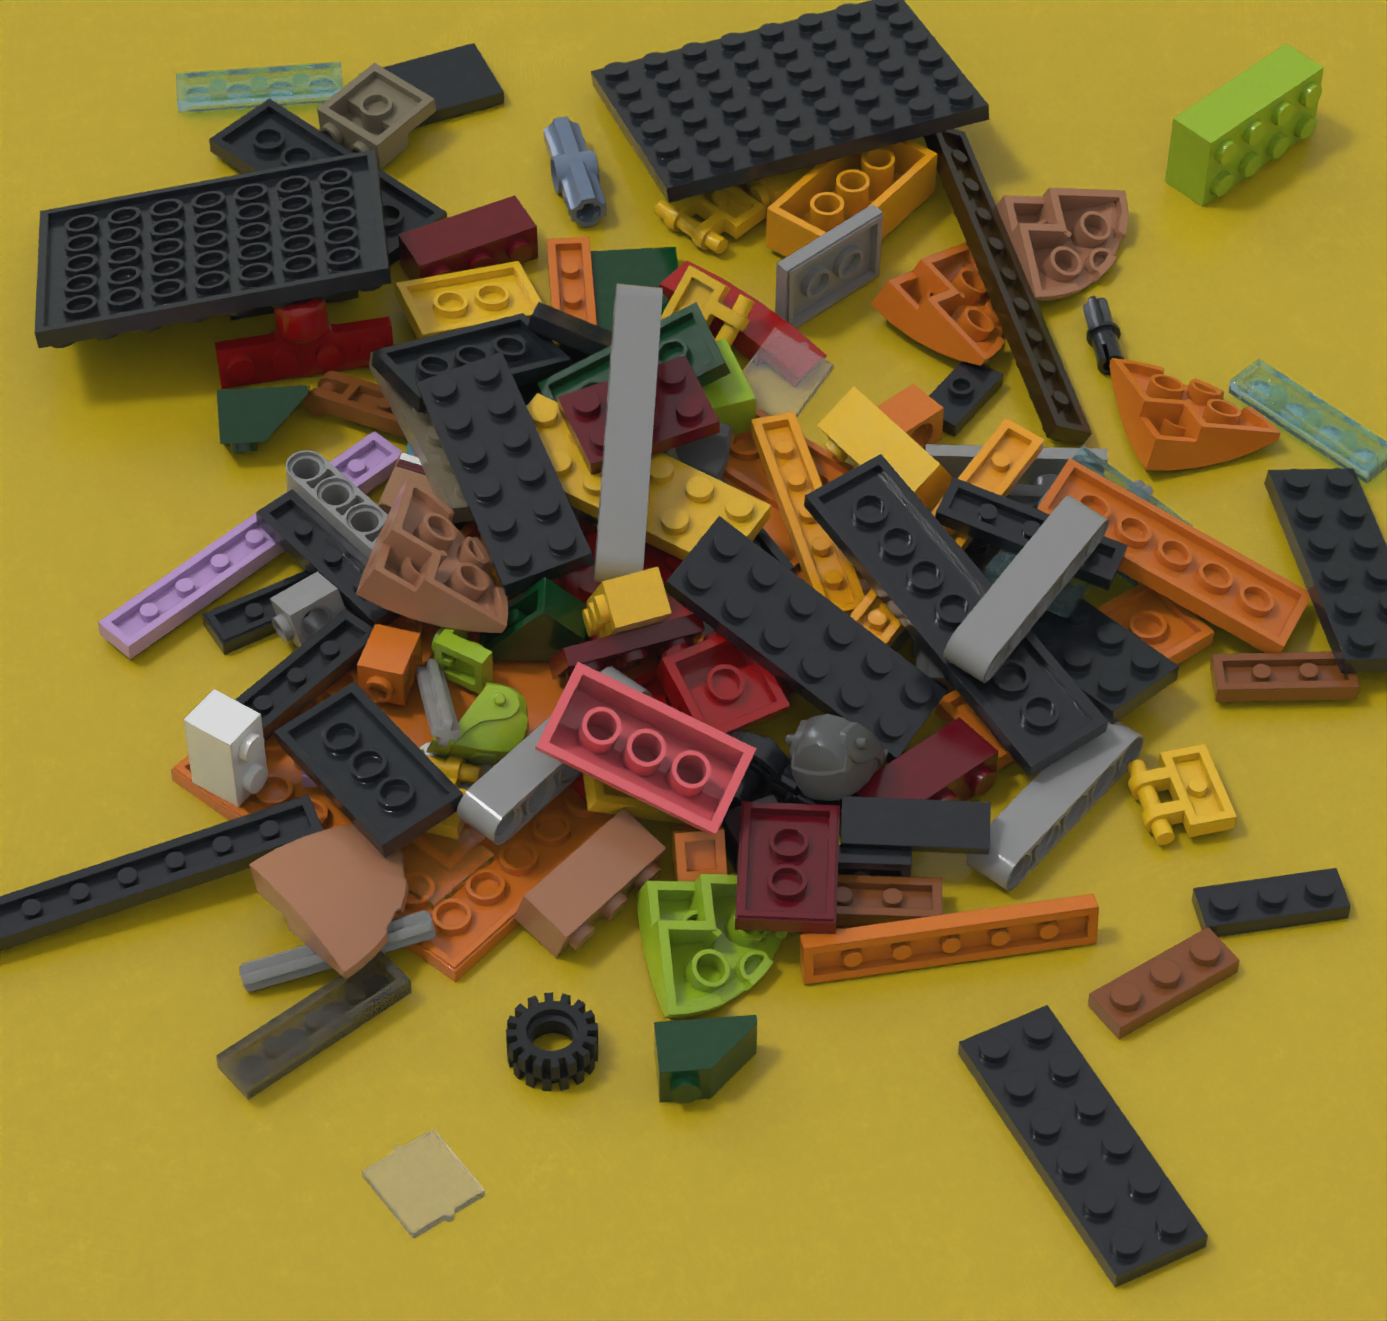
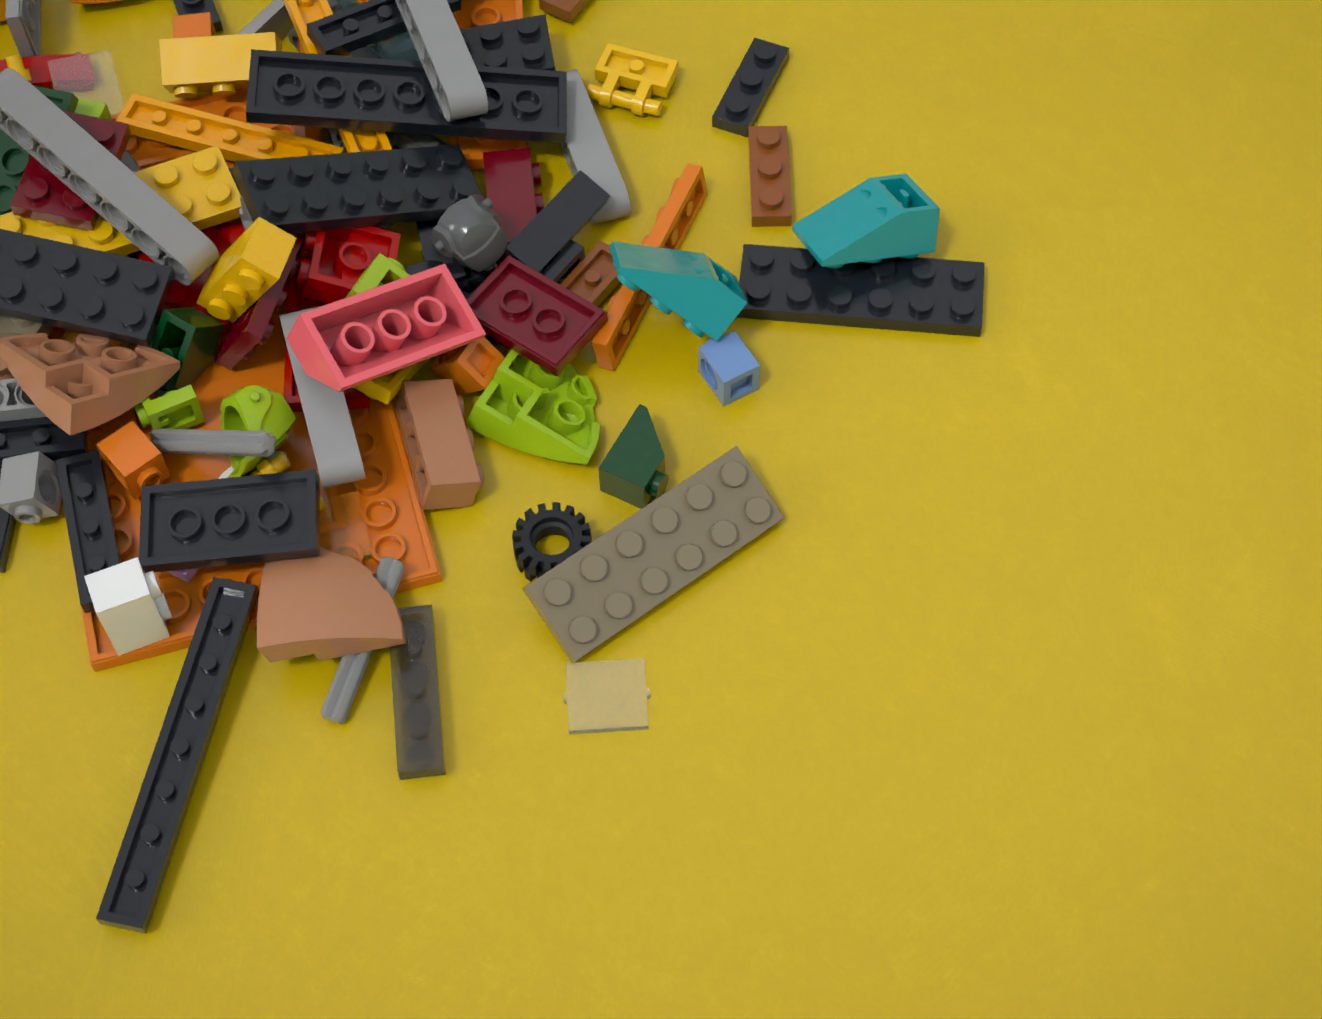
camera: 55 degrees left, 10 degrees up
(602, 1128) = (653, 554): none -> dark tan plate
(703, 706) = (379, 272): none -> lime bracket
(874, 1073) = (728, 368): none -> medium blue brick
(915, 958) = (682, 283): none -> teal slope
(1149, 1095) = (872, 223): none -> teal slope

